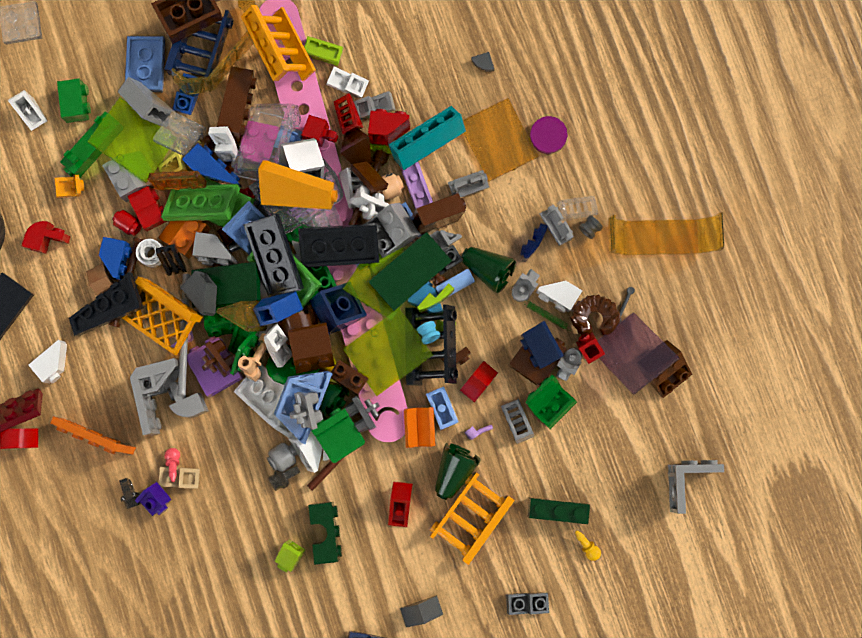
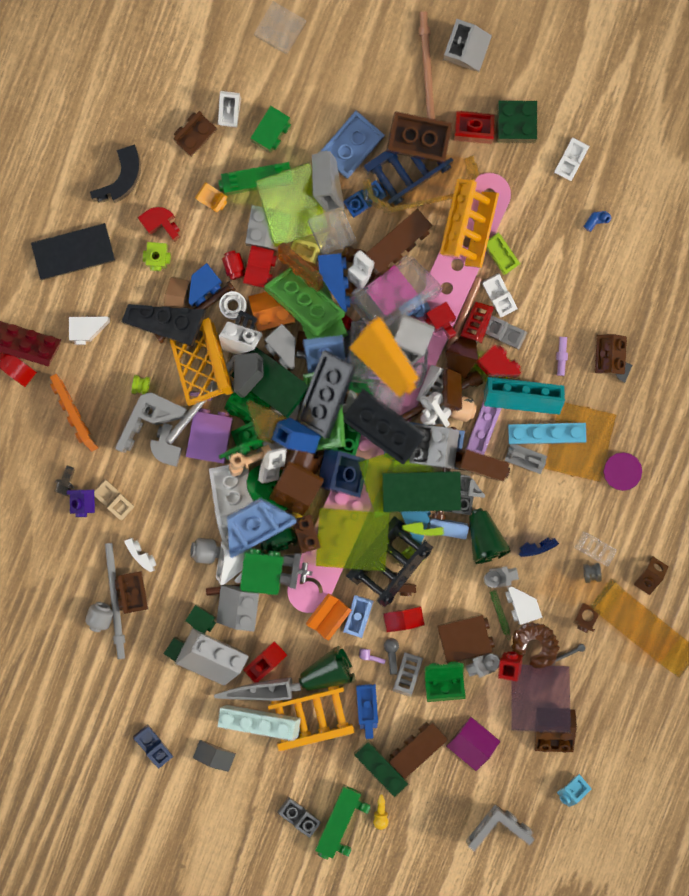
camera: 35 degrees right, 5 degrees up
(17, 150) = (194, 133): none -> reddish brown bracket
(60, 263) = (156, 249): none -> lime brick
(126, 371) = (140, 385): none -> lime wheel
(172, 458) = (120, 480): coral bar -> none
(173, 273) = (238, 338): none -> white slope
(213, 352) = (214, 436): reddish brown hips -> none
(239, 503) = (144, 560): none -> white slope
(241, 578) = (99, 616): none -> light grey head
(251, 537) = (132, 592): none -> reddish brown bracket
(271, 582) = (119, 638): none -> light grey bar
(280, 479) = (189, 566): clear smoke piece -> none
(289, 556) = (149, 631): lime slope -> none
(304, 411) = (252, 534): light grey hips -> none
(331, 113) = (465, 310): none -> nougat bar
(343, 479) = (237, 608): none -> light grey slope
(354, 536) = (211, 658): none -> light grey slope
(417, 527) = (266, 690): none -> light grey piece
(428, 332) = (395, 551): medium azure wheel -> none
(431, 88) = (562, 356): none -> lavender bar
(434, 555) = (259, 722): none -> light aqua brick
(465, 56) = (610, 354): none -> reddish brown bracket
(468, 153) = (546, 433): none -> medium azure plate
(487, 410) = (391, 646): none -> dark grey bar
(509, 473) = (367, 708): none -> blue hinge
(541, 346) = (472, 634): dark blue slope -> none
(559, 230) = (565, 554): light grey hinge -> none
(561, 582) = (338, 822): none -> green brick
(573, 472) = (417, 749): none -> reddish brown brick
(612, 432) = (473, 744): none -> magenta slope
(616, 272) = (584, 625): none -> reddish brown bracket
(637, 194) = (651, 576): none -> reddish brown bracket
(719, 403) = (574, 791): none -> medium azure bracket

